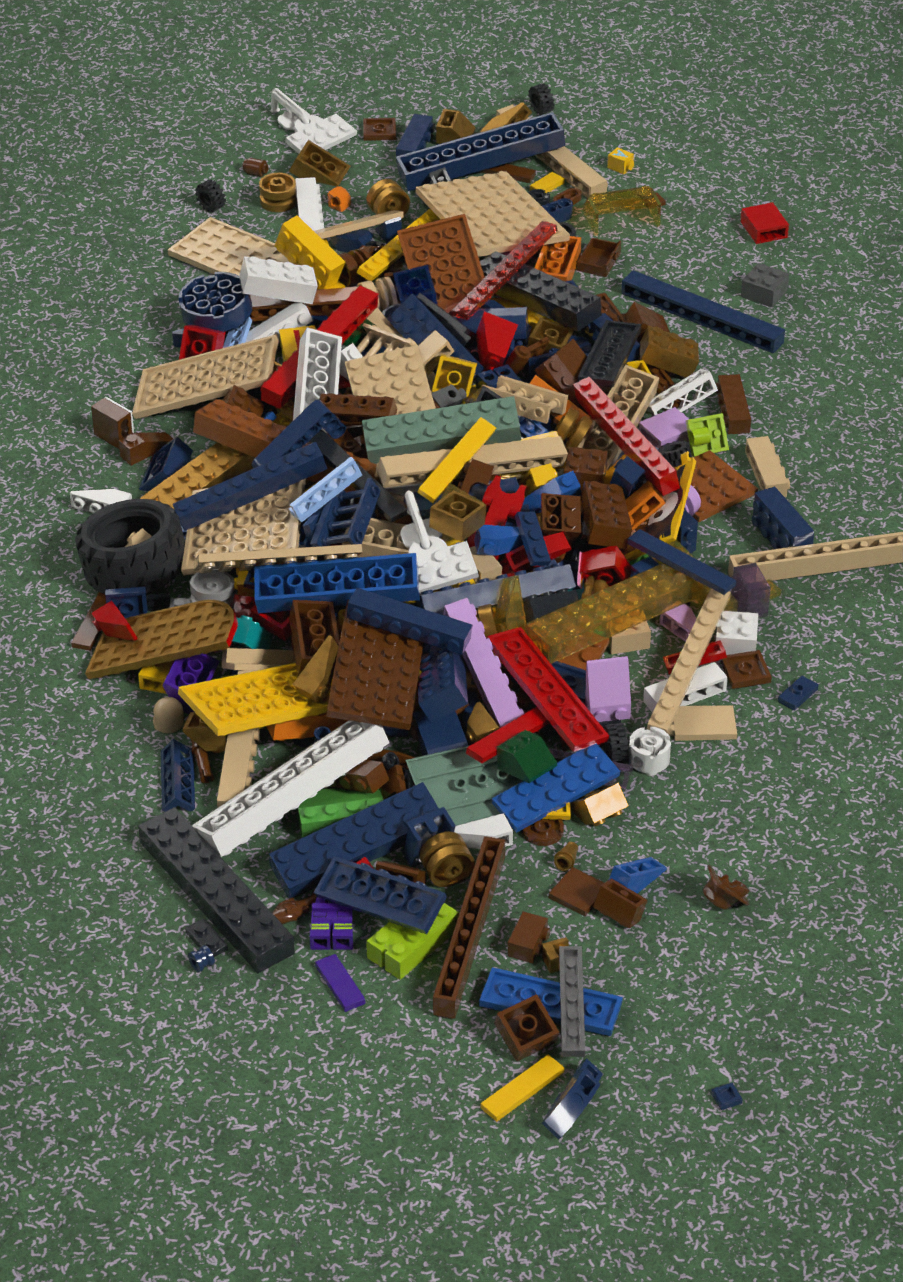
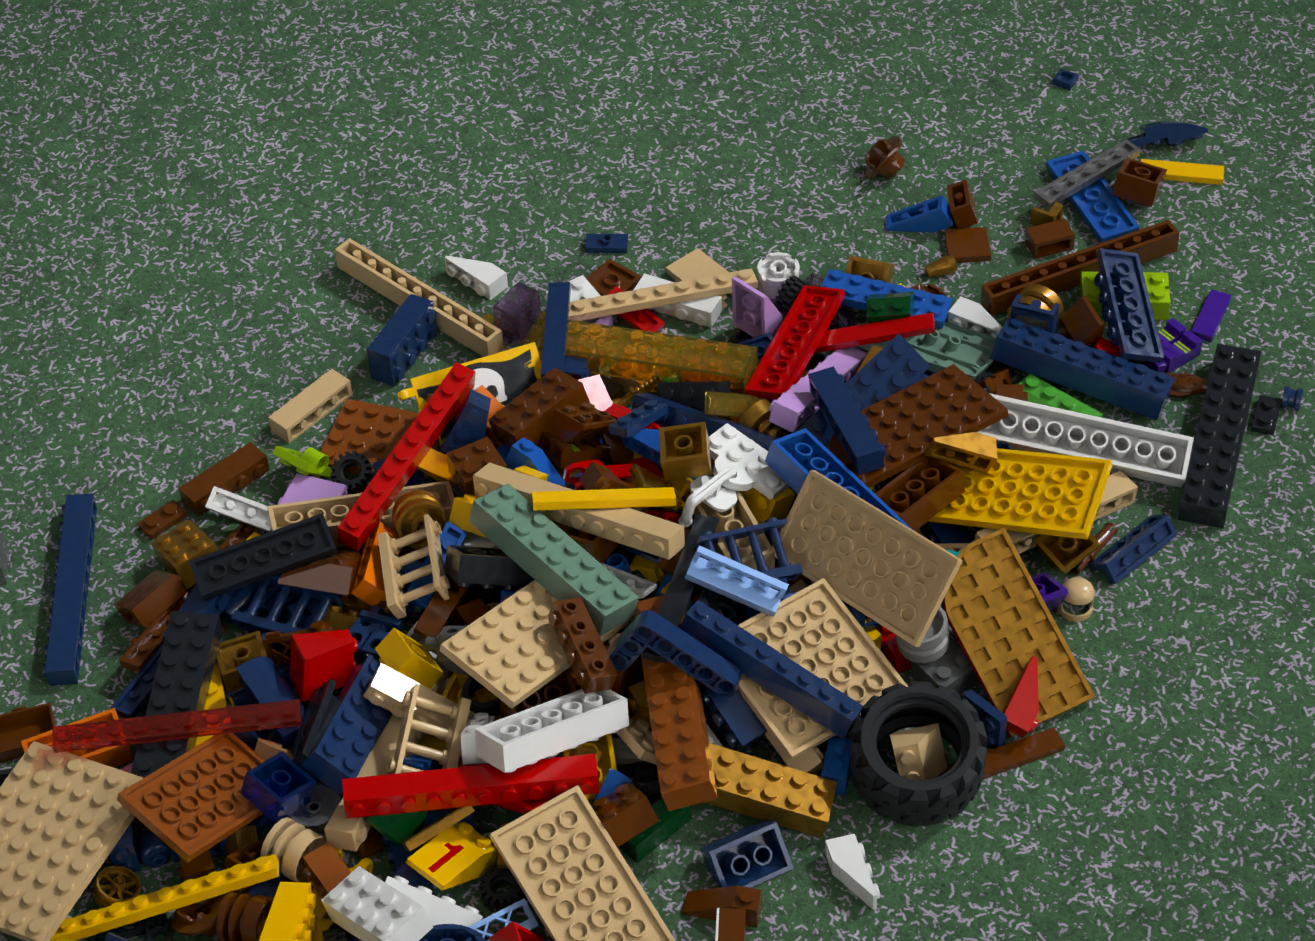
camera: 125 degrees left, 5 degrees up
(726, 366) = (162, 519): none -> reddish brown plate
(825, 603) = (481, 276): none -> white slope

